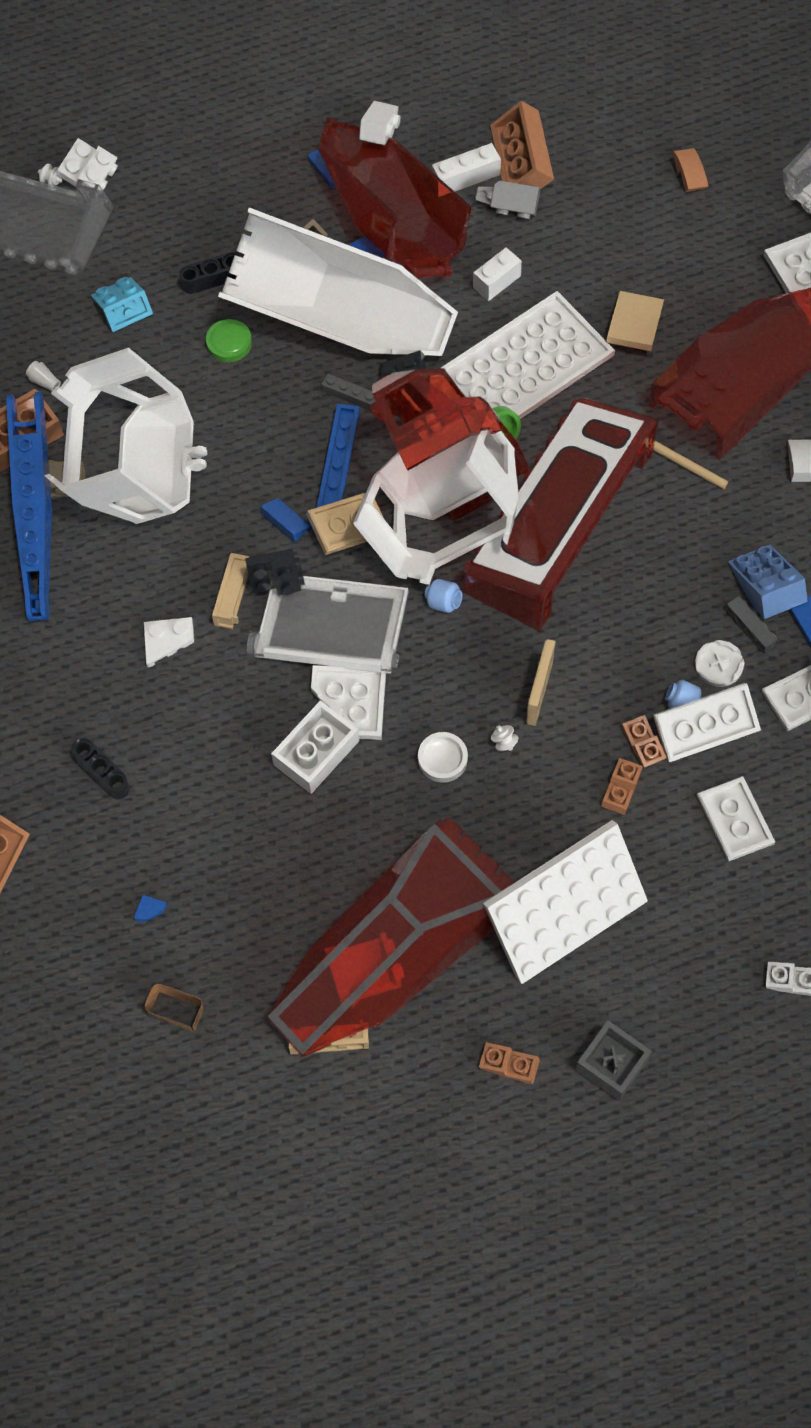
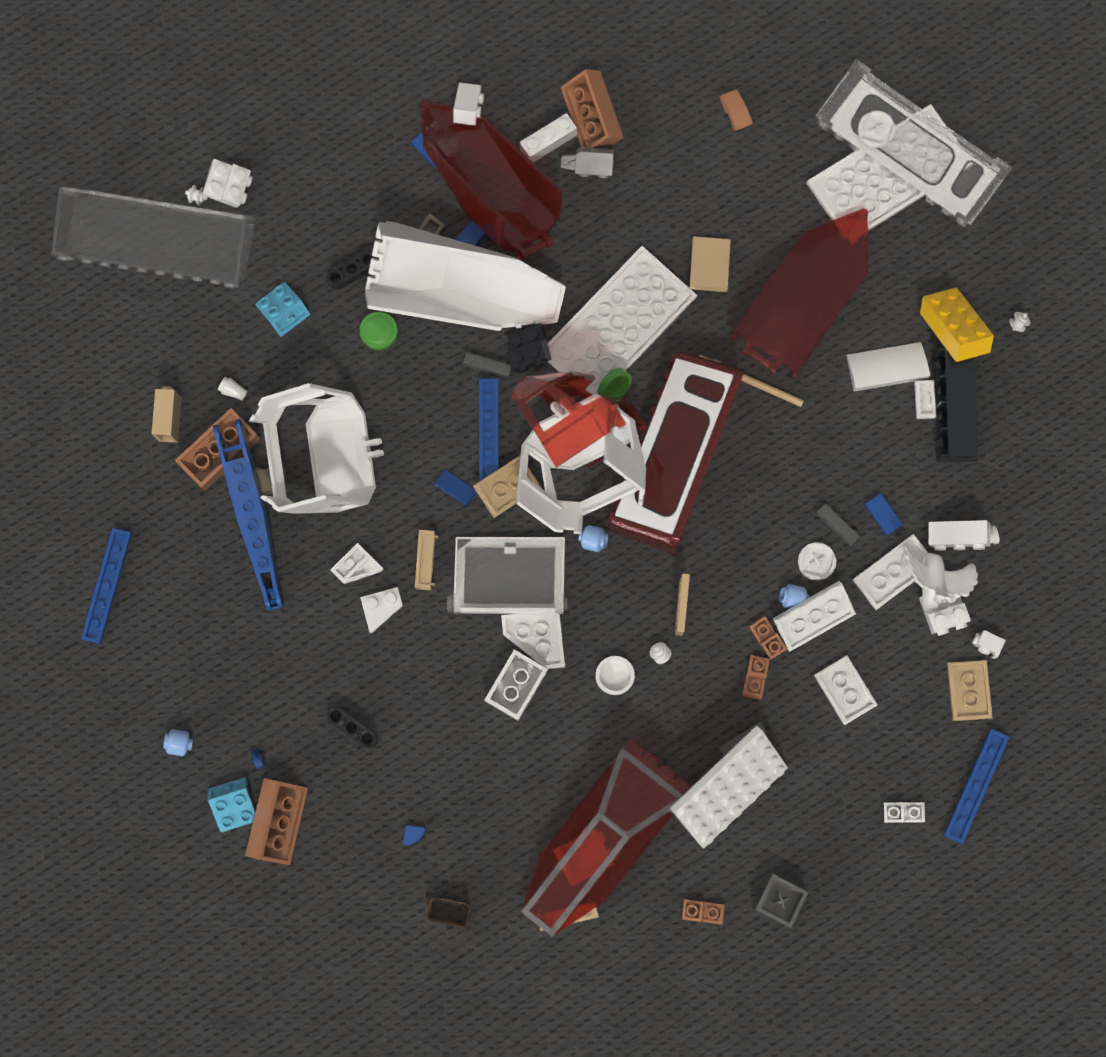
camera: 10 degrees left, 15 degrees up
(146, 586) = (356, 565): none -> white wing
(276, 571) = (464, 542): black plate -> none
(497, 274) = (590, 237): white brick -> none
(769, 581) = (846, 485): medium blue slope -> none

